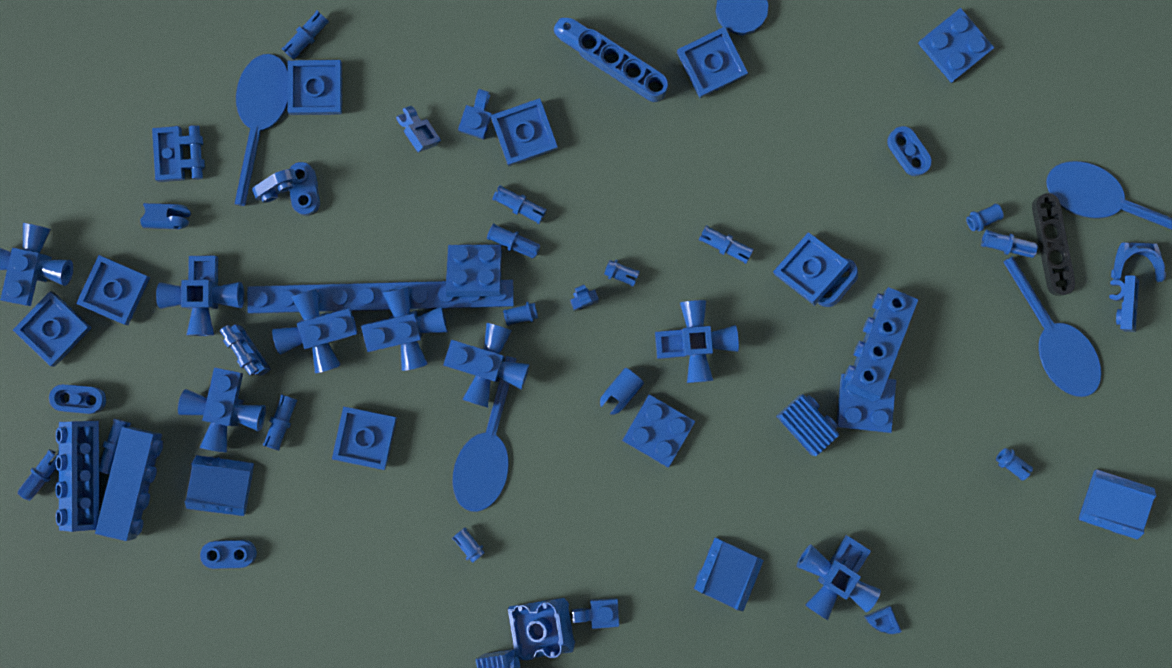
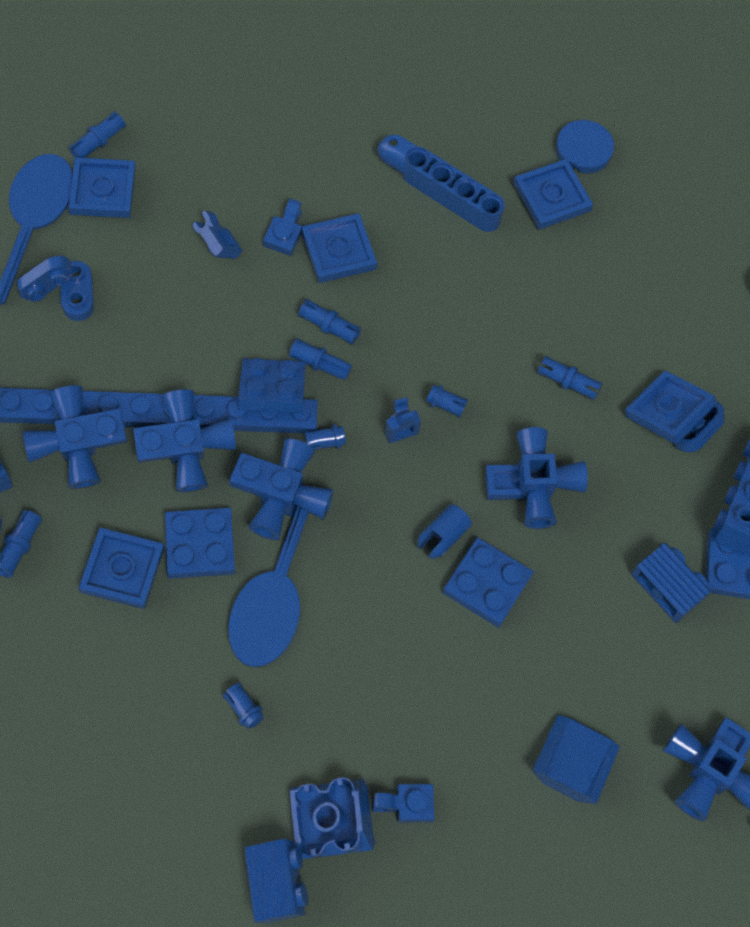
camera: 10 degrees left, 20 degrees down
(424, 411) = (199, 543): none -> blue plate

